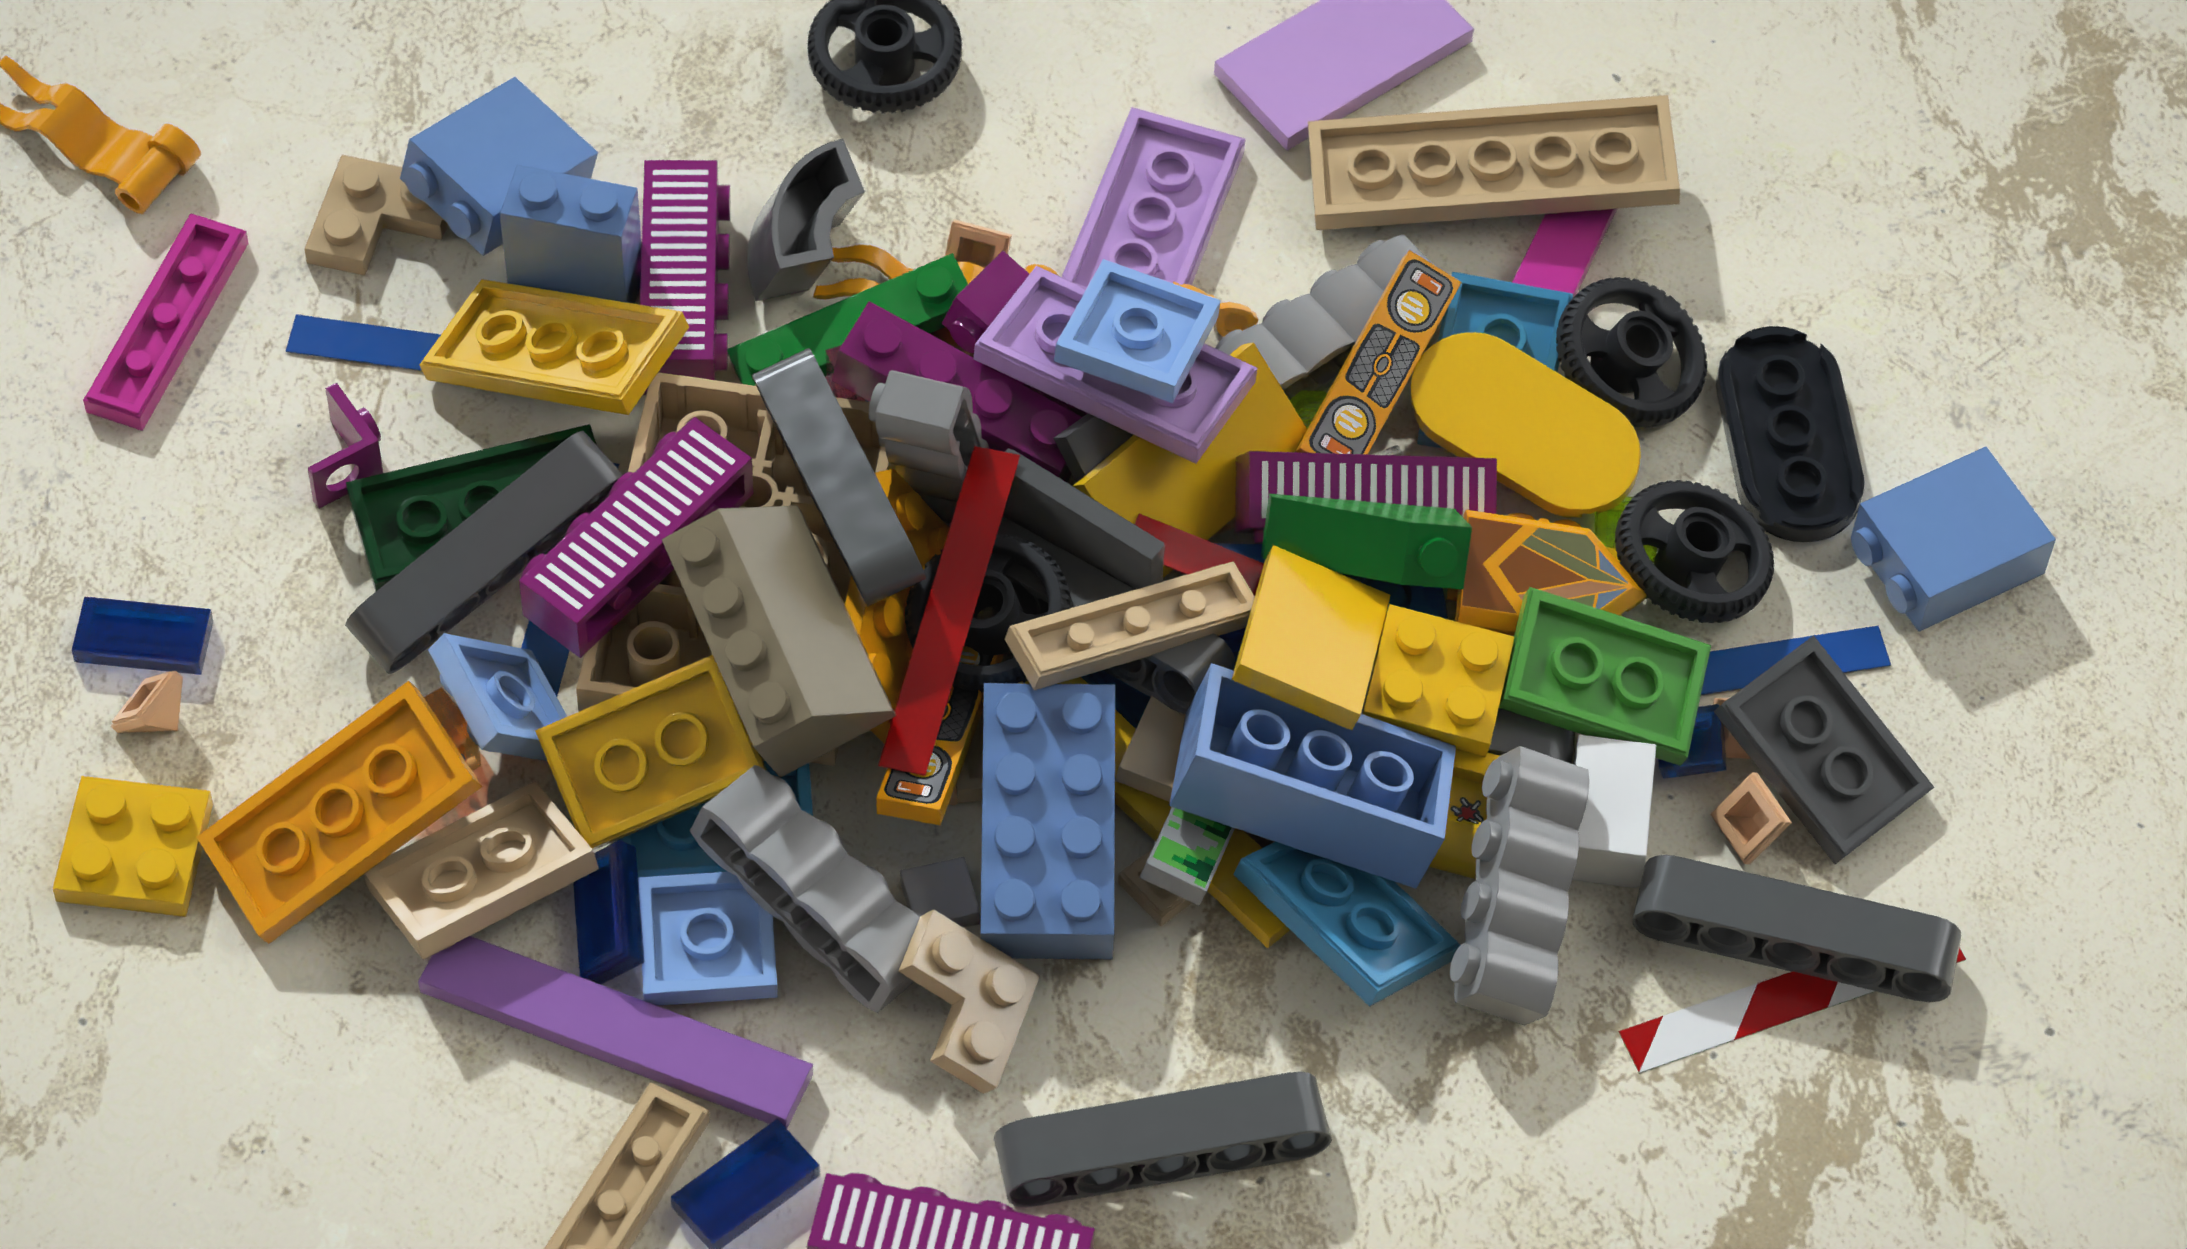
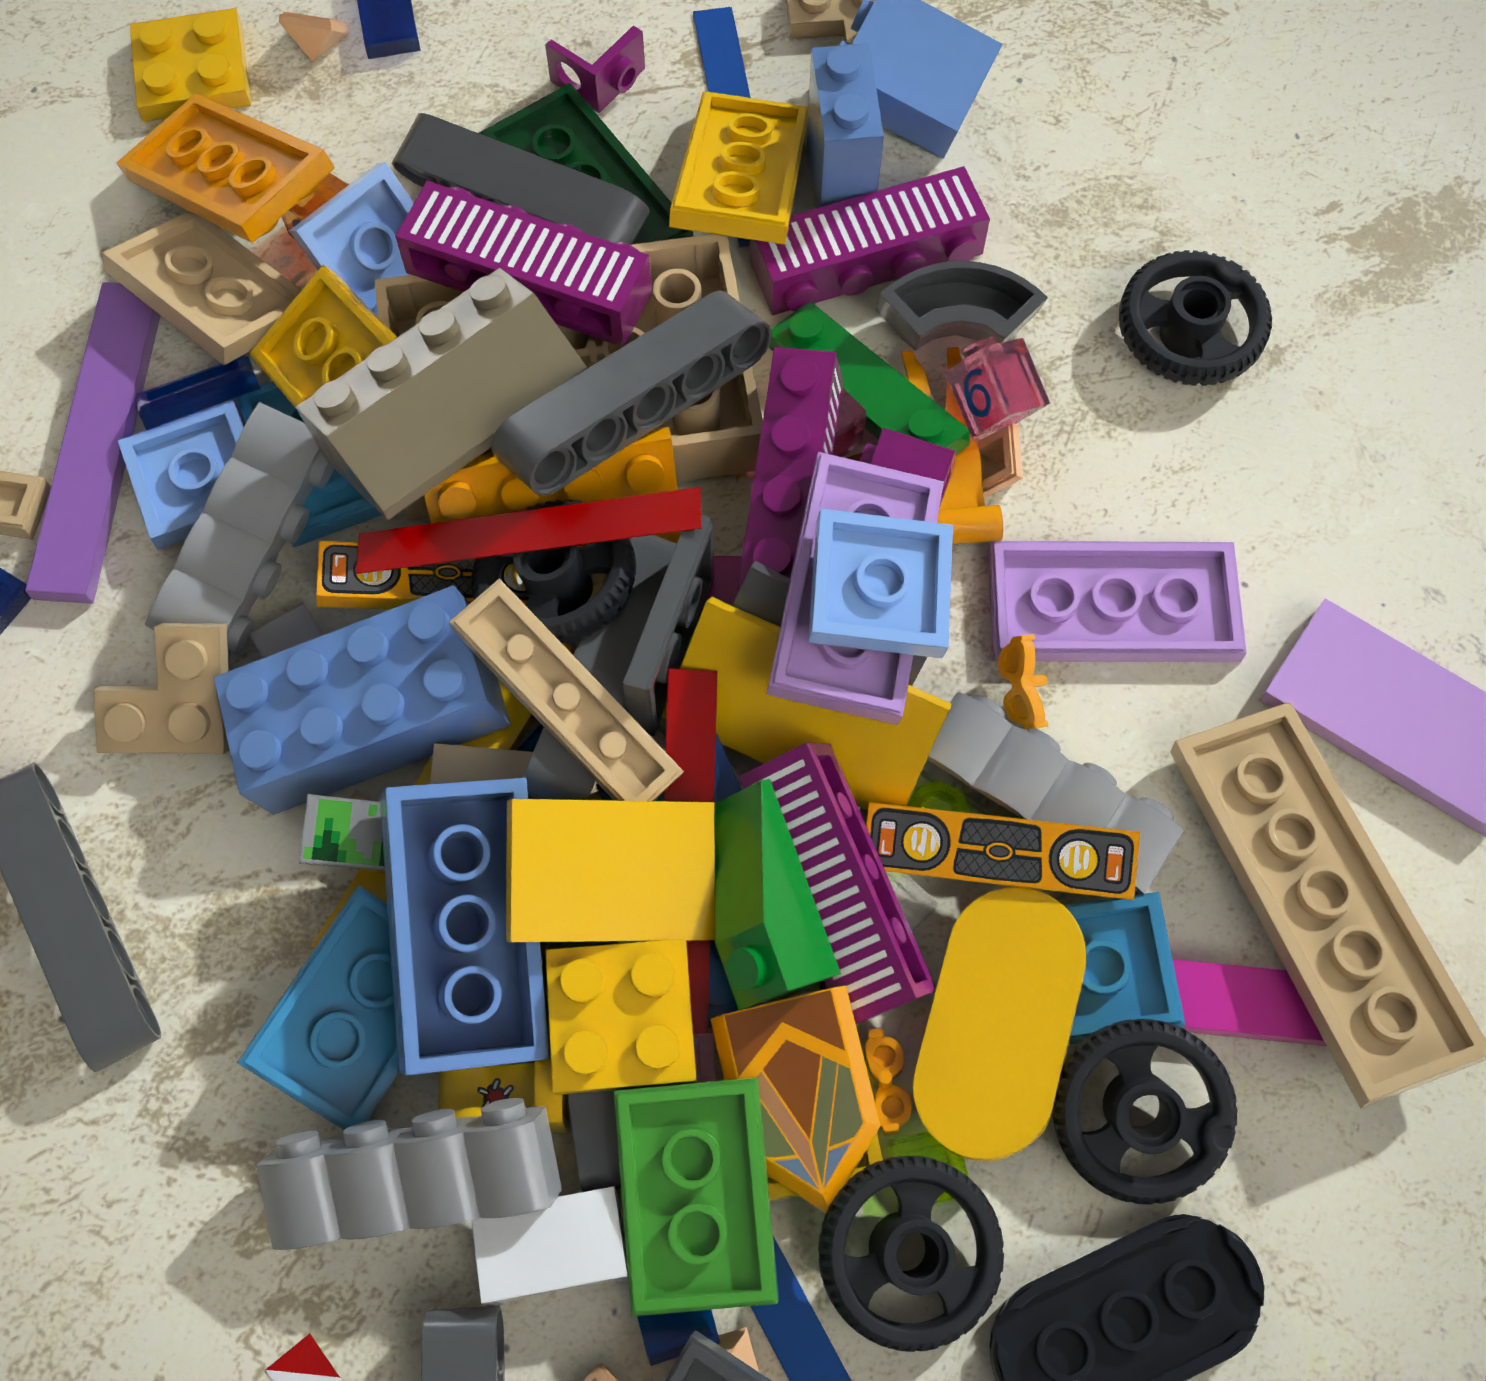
camera: 75 degrees right, 10 degrees up
(905, 220) = (996, 385): none -> clear pink brick
(927, 435) = (693, 444): light grey brick -> none

